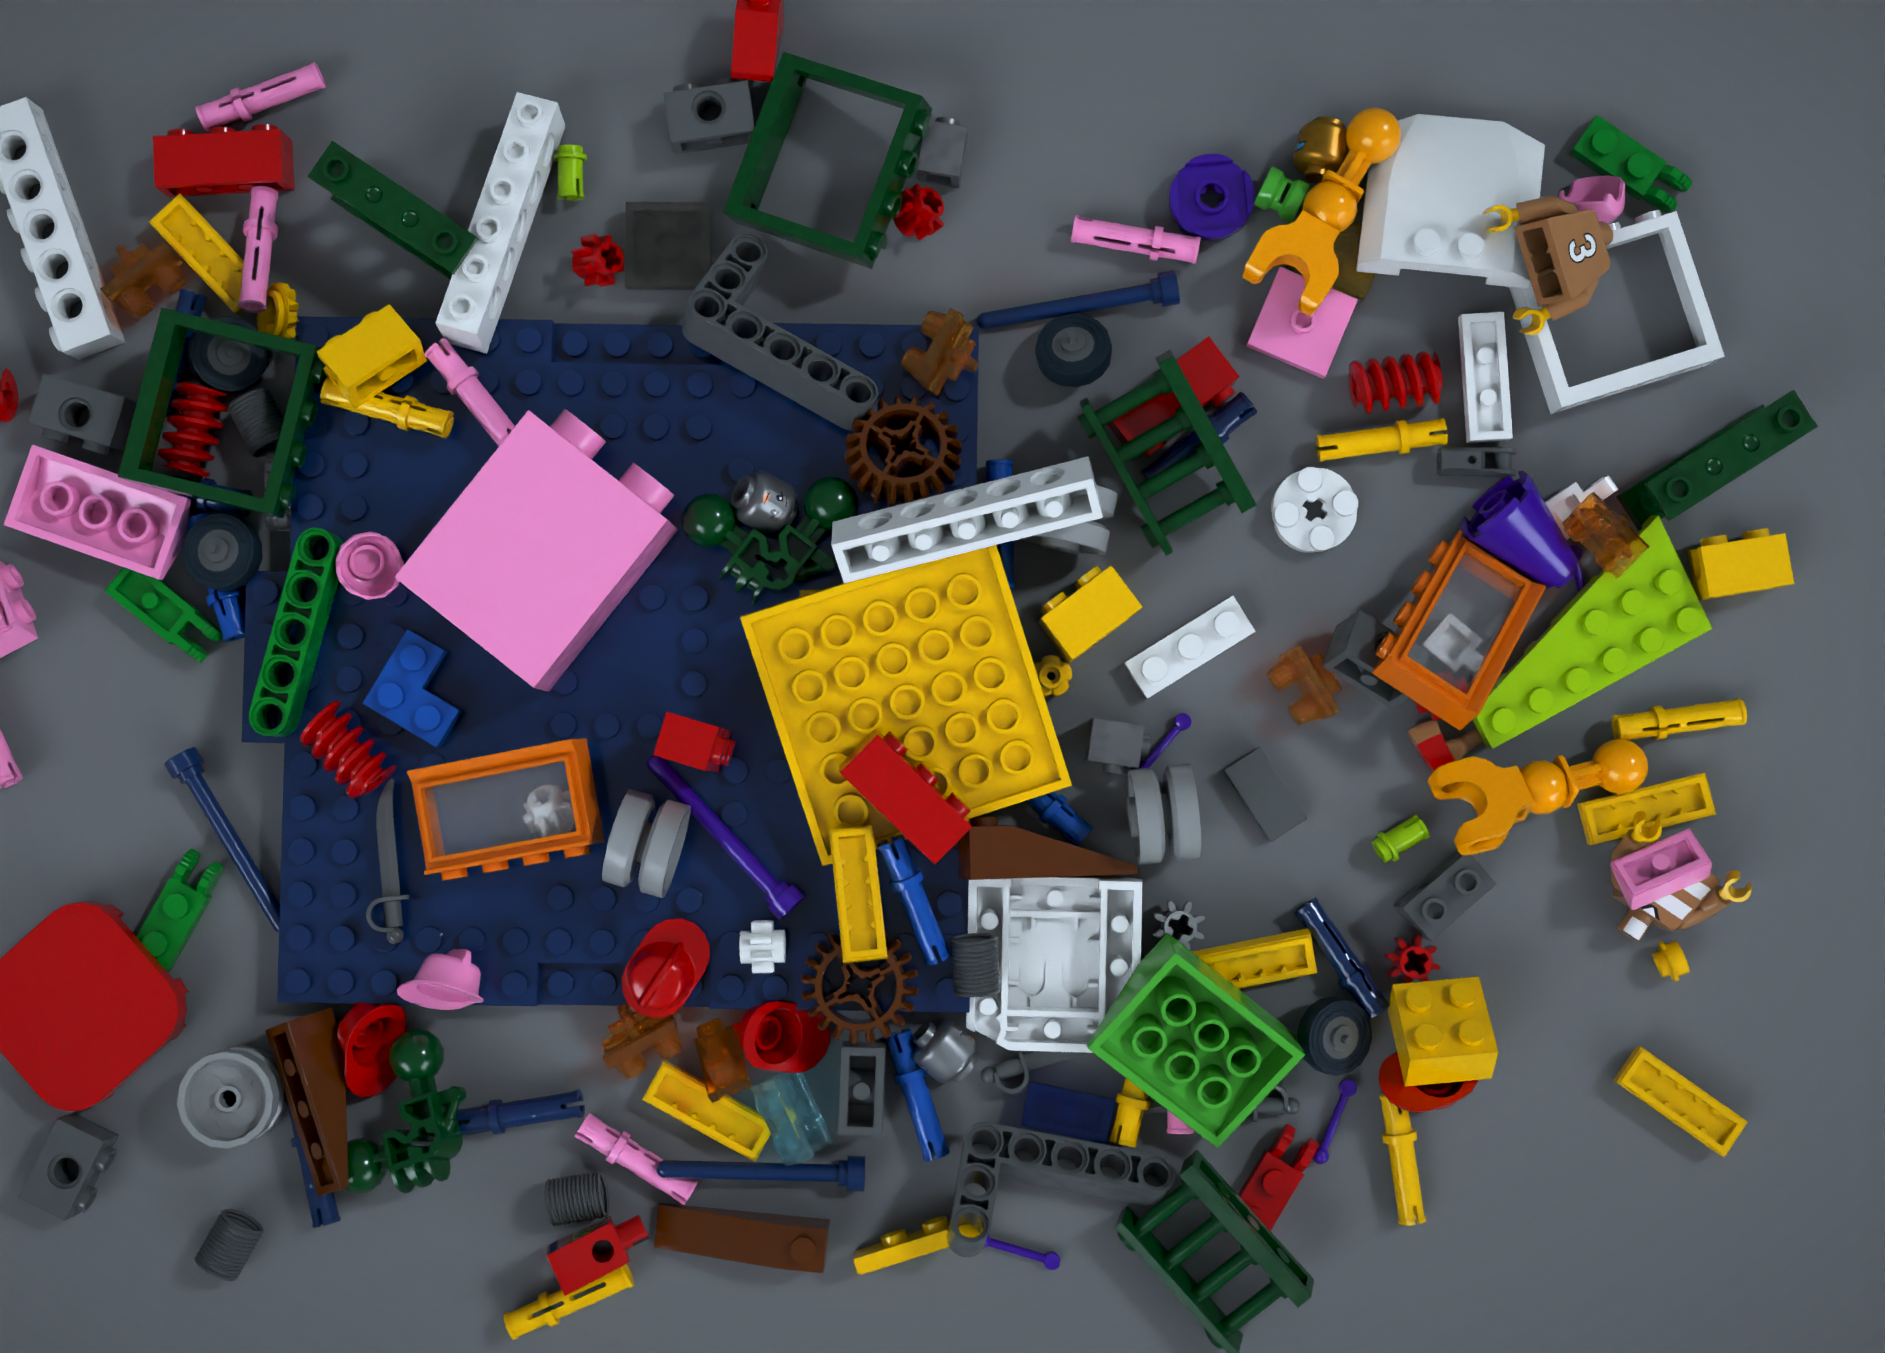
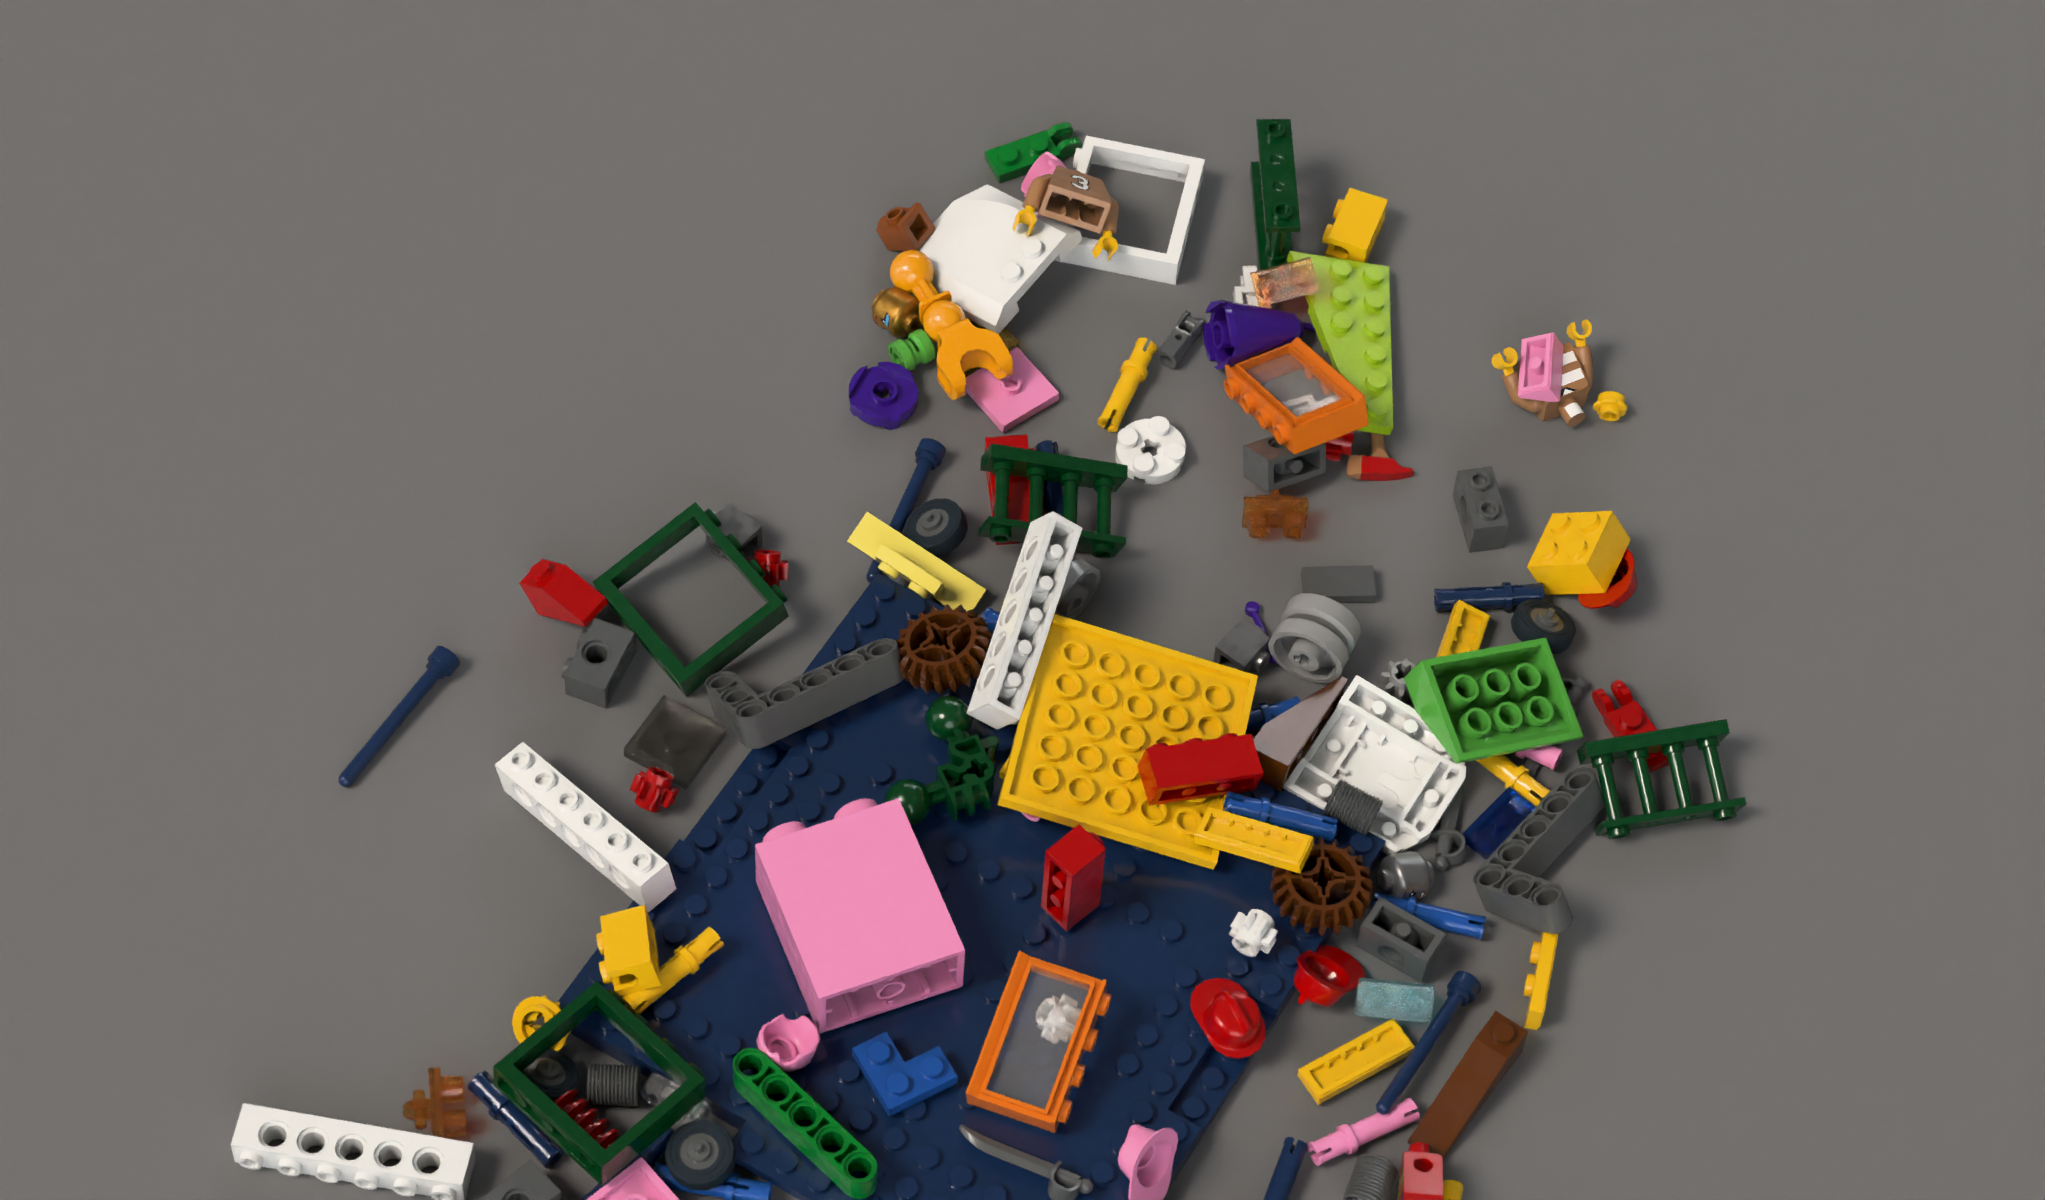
camera: 65 degrees left, 30 degrees down
(202, 249) = (453, 1053): yellow plate -> none
(222, 161) = (391, 1002): red brick -> none
(254, 99) = (356, 965): bright pink pin -> none
(262, 205) = (468, 1005): bright pink pin -> none
(344, 752) = (920, 1135): red piece -> none
(392, 210) = (534, 888): dark green fence -> none
(464, 382) = (706, 908): bright pink pin -> none
(570, 172) = (578, 777): lime pin -> none
(635, 1034) = (1264, 1076): clear orange hips -> none
(644, 842) = (1128, 956): light grey wheel -> none
(721, 1060) = (1324, 1023): clear orange hips -> none
(764, 502) = (917, 758): flat silver head -> none
(779, 895) = (1223, 905): dark purple piece -> none
(946, 354) = (872, 583): clear orange hips -> none
(1008, 357) = (914, 564): none -> light yellow bracket
(1050, 1259) = (1606, 899): dark purple hinge -> none
(1089, 613) = (1137, 601): yellow brick -> none
(1136, 239) = (891, 443): bright pink pin -> none
(1189, 647) = (1200, 576): white plate -> none
(1347, 1088) = (1587, 646): dark purple hinge -> none
(1395, 380) = (1092, 353): red piece -> none
(1400, 839) = (1423, 525): lime pin -> none
(1400, 1142) = (1656, 633): yellow pin -> none
(1423, 963) = (1515, 553): red gear -> none
(1433, 80) = (900, 223): none -> dark orange brick
(1485, 377) = (1124, 303): white plate -> none
(1540, 787) = (1433, 428): light orange piece -> none
(1661, 722) = (1437, 326): yellow pin -> none
(1671, 801) = (1486, 383): yellow plate -> none
(1680, 1101) = (1714, 451): yellow plate -> none

